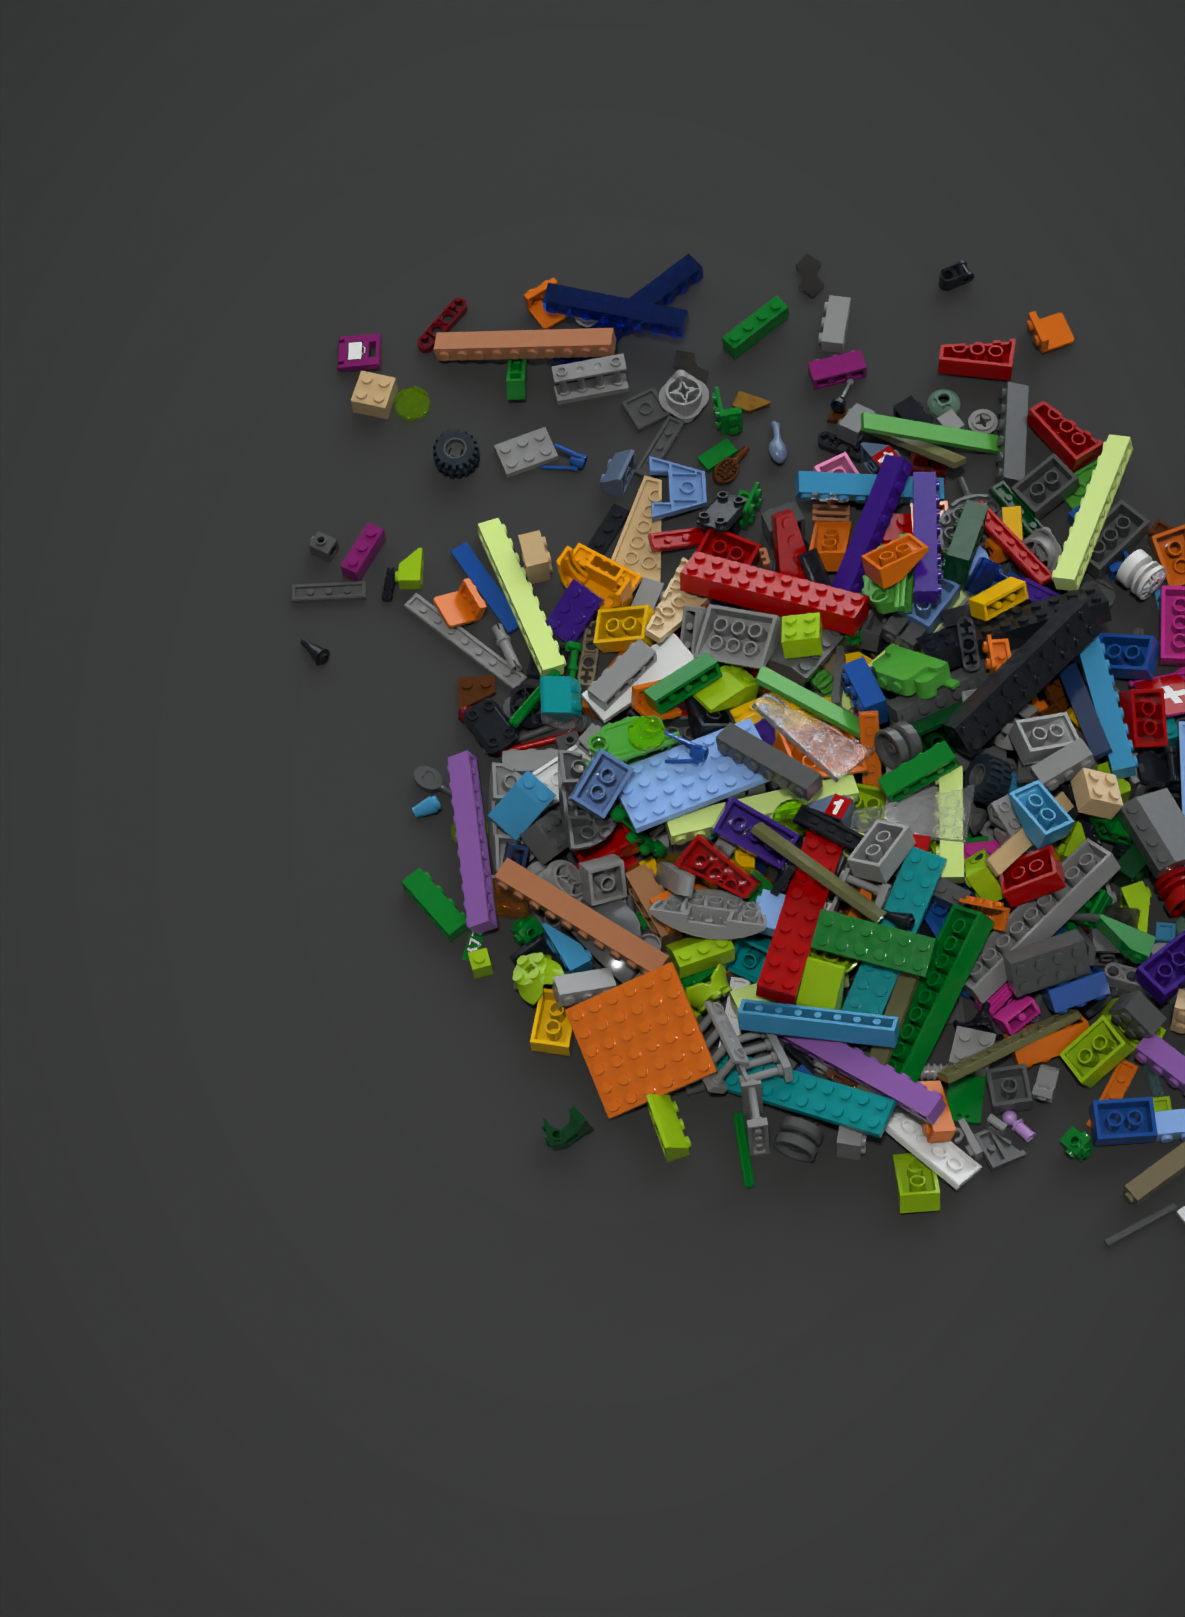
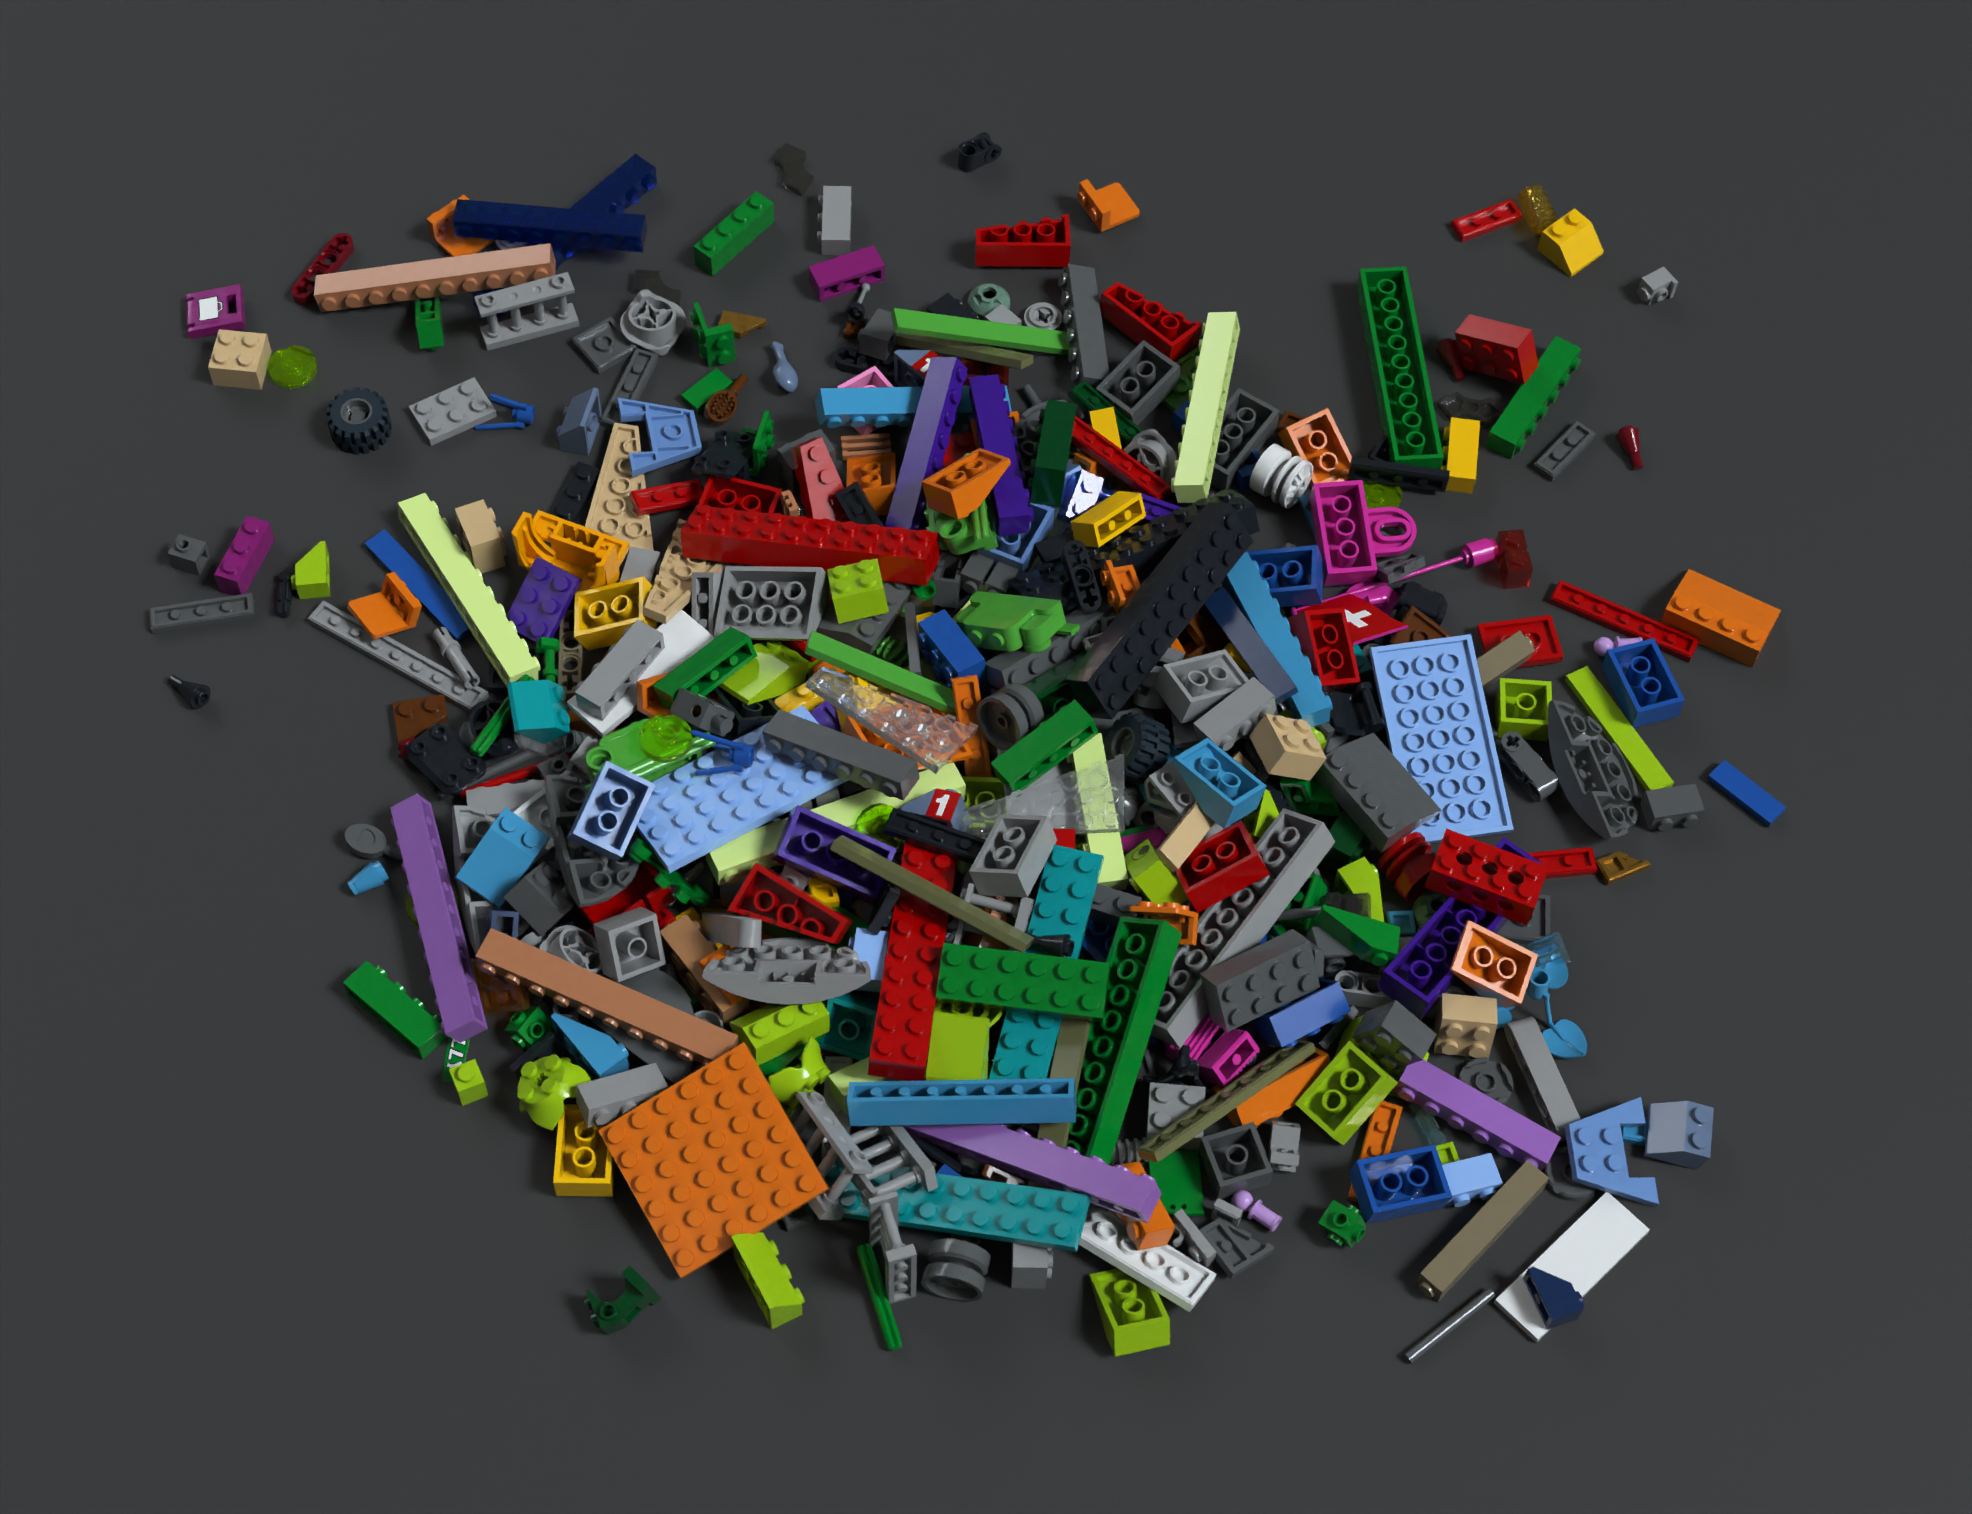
camera: 20 degrees left, 5 degrees down
(684, 719) = (713, 715): none -> dark grey torso

